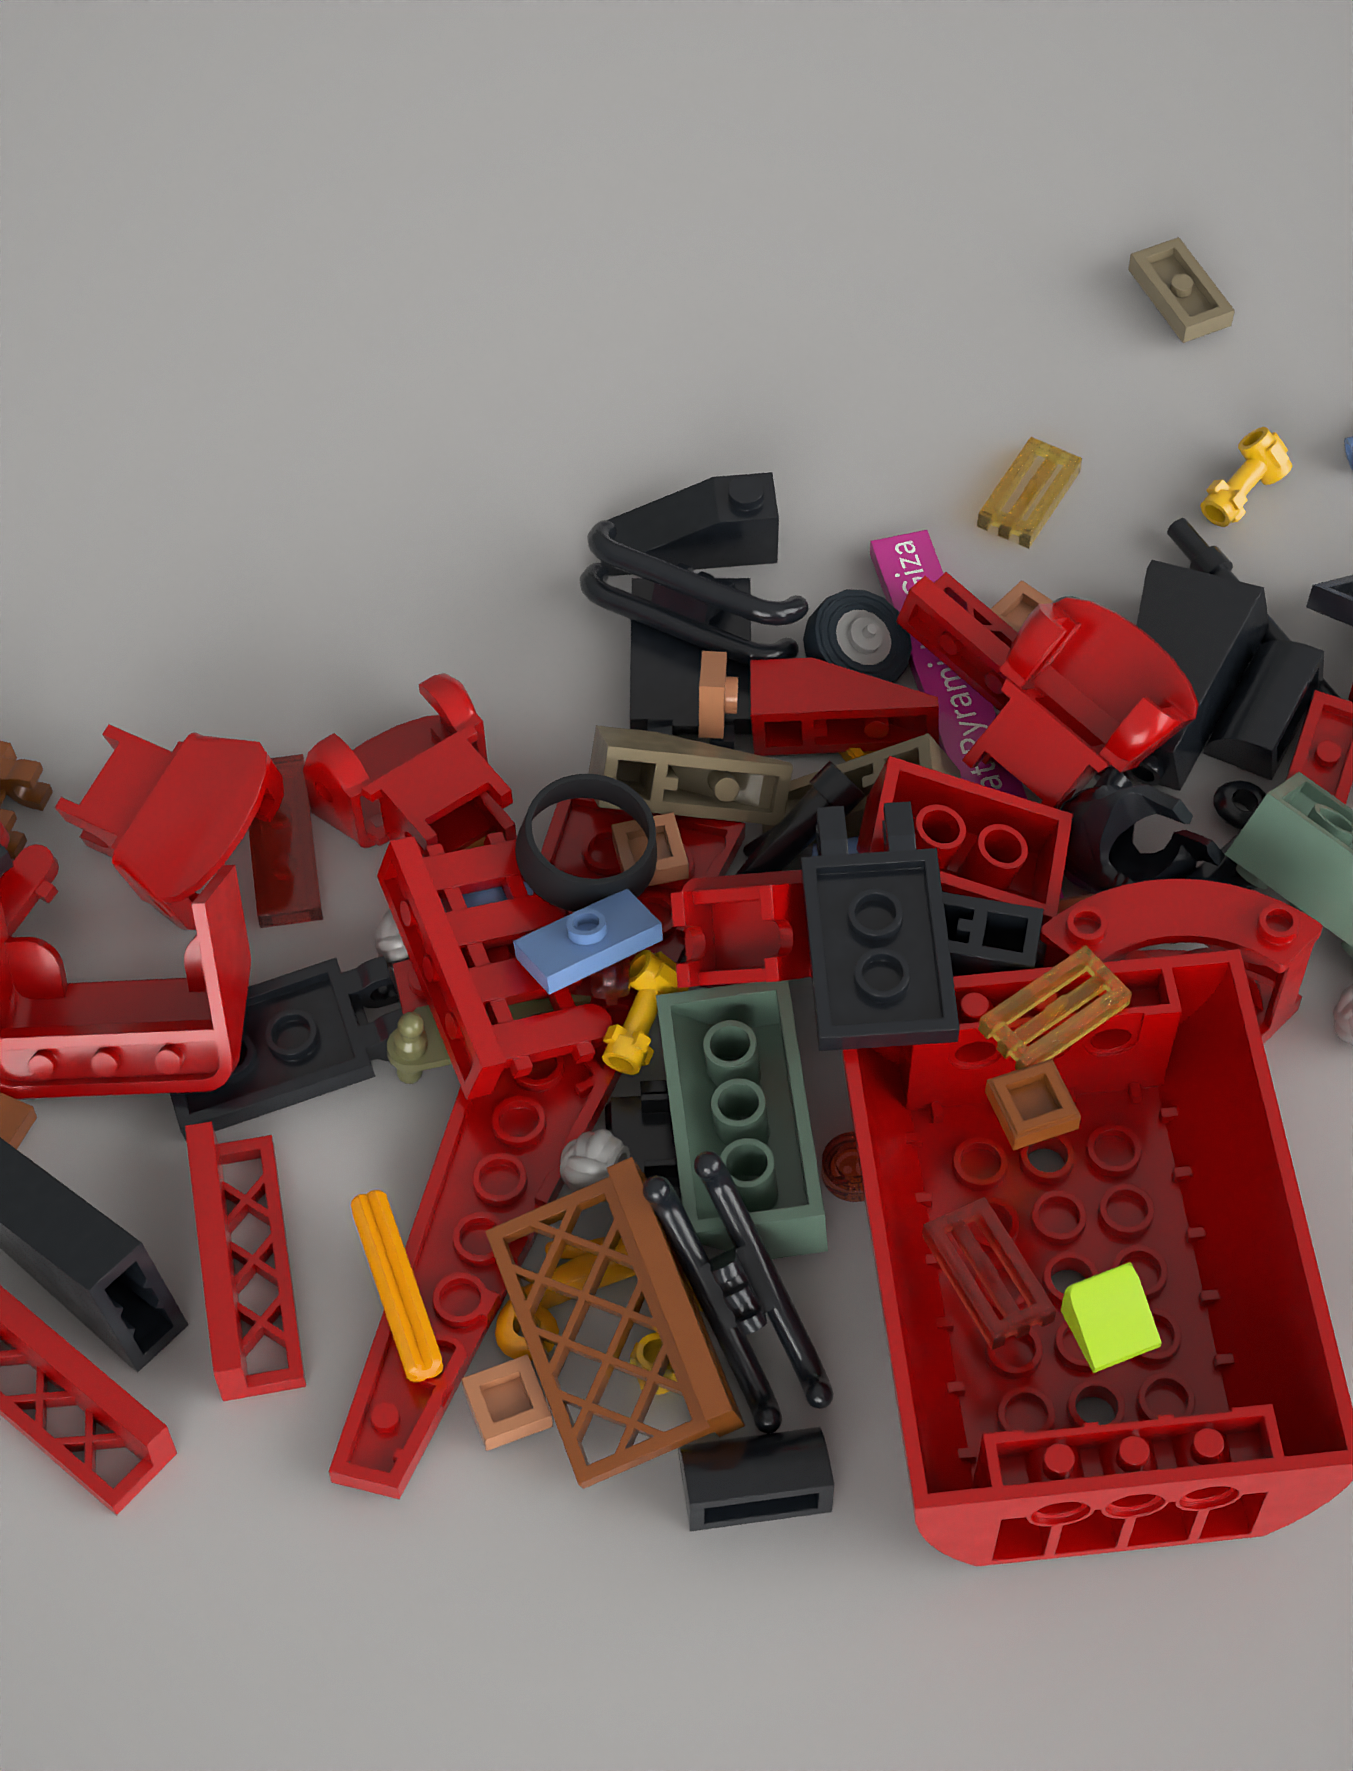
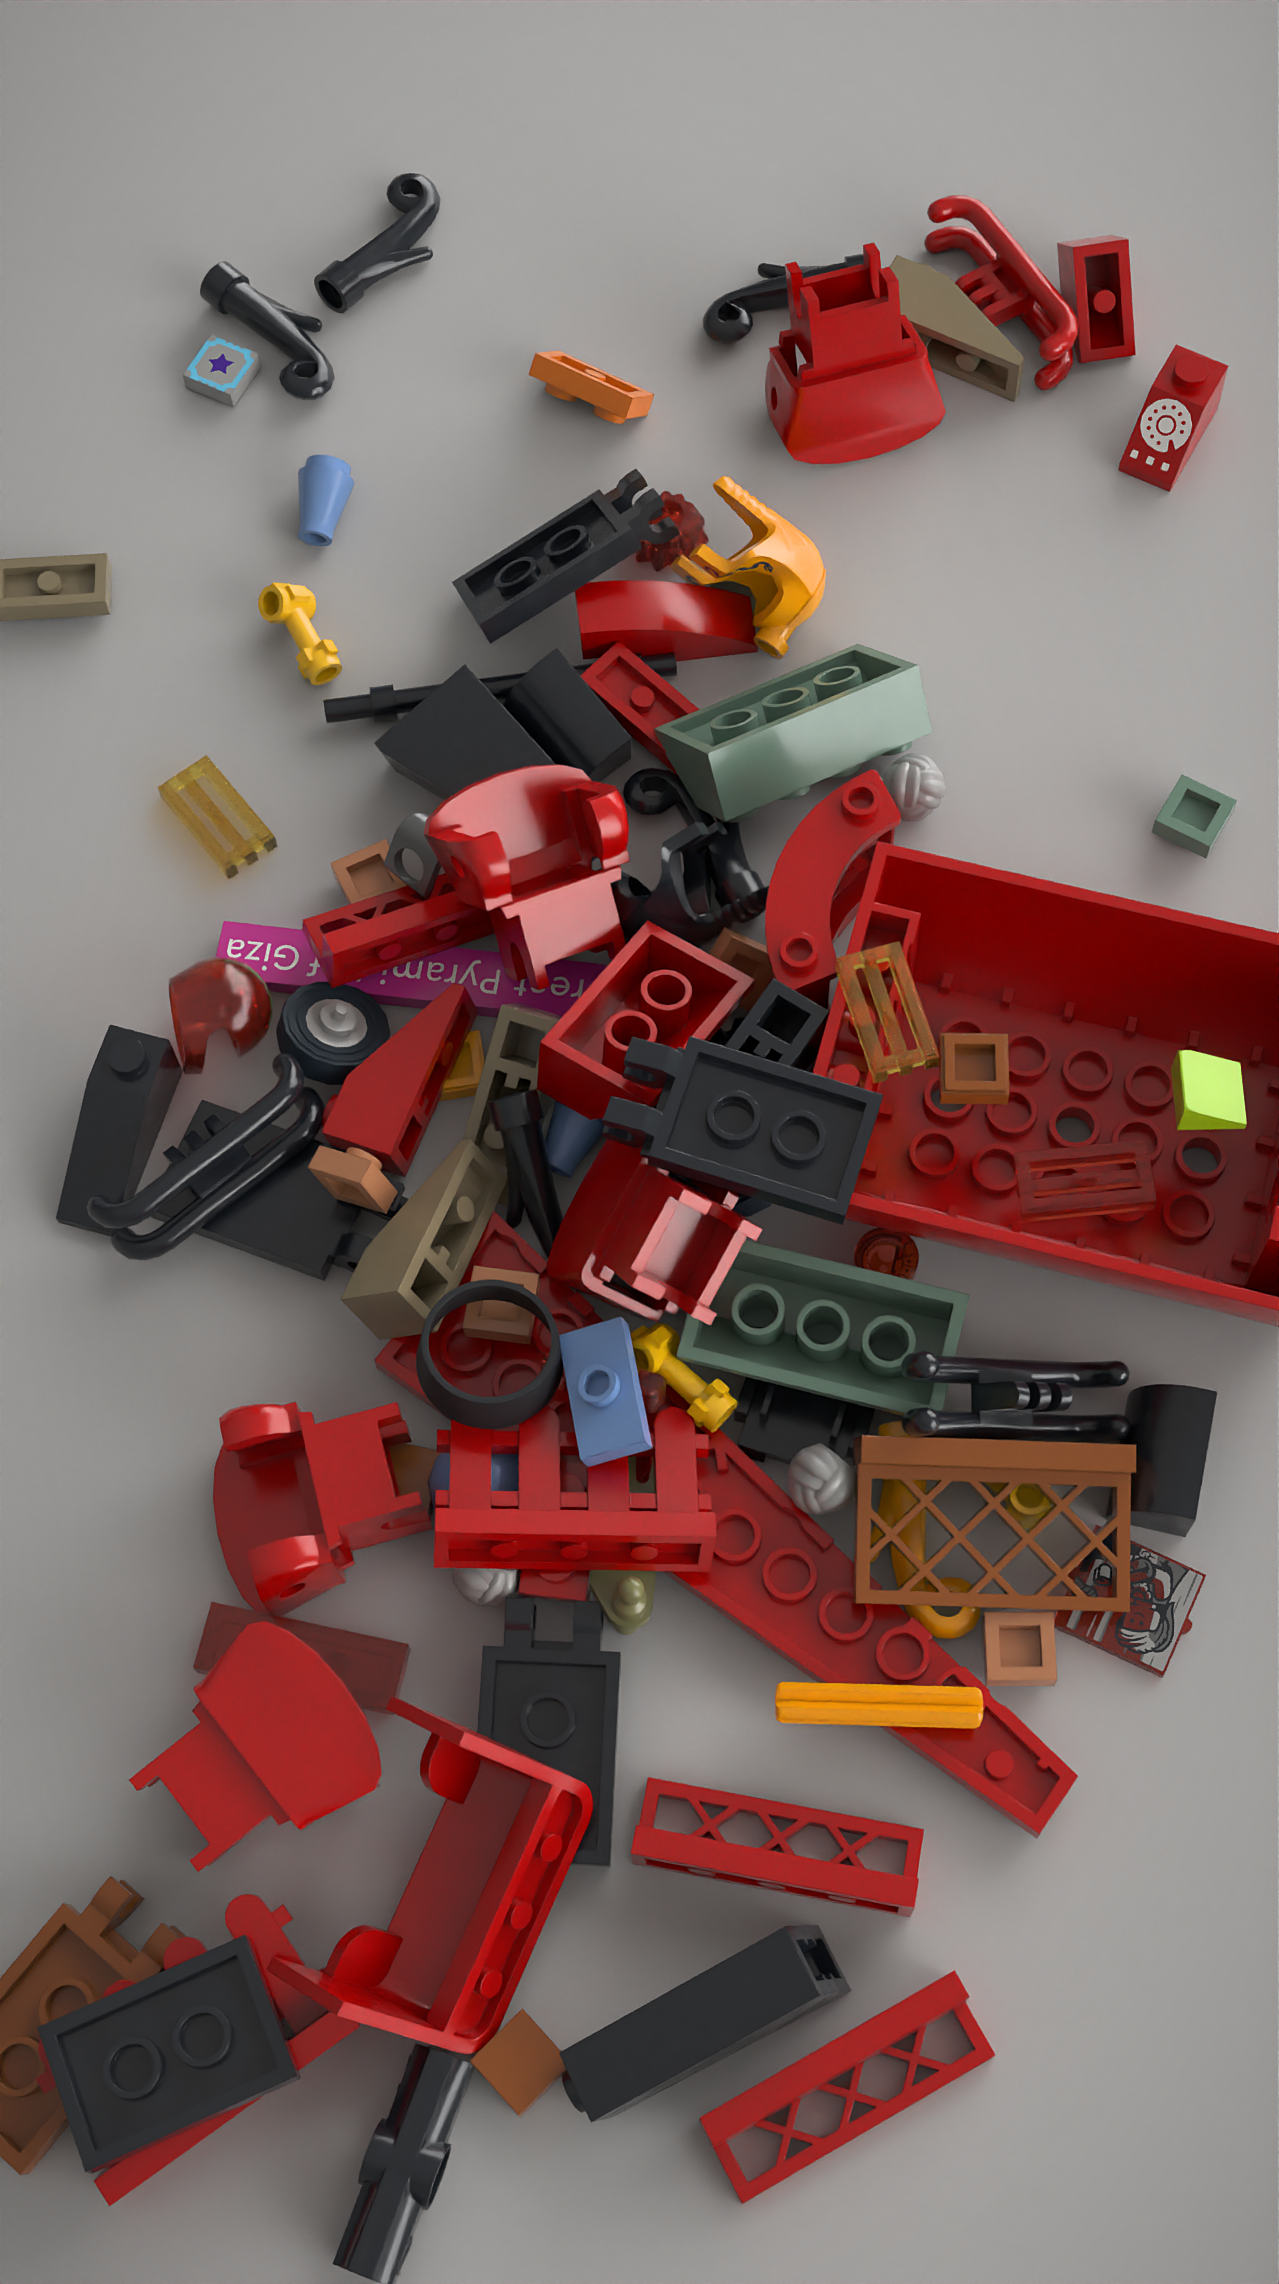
camera: 65 degrees left, 10 degrees up
(604, 1520) = (1159, 1607): none -> piece
(834, 541) = (217, 996): none -> clear red helmet

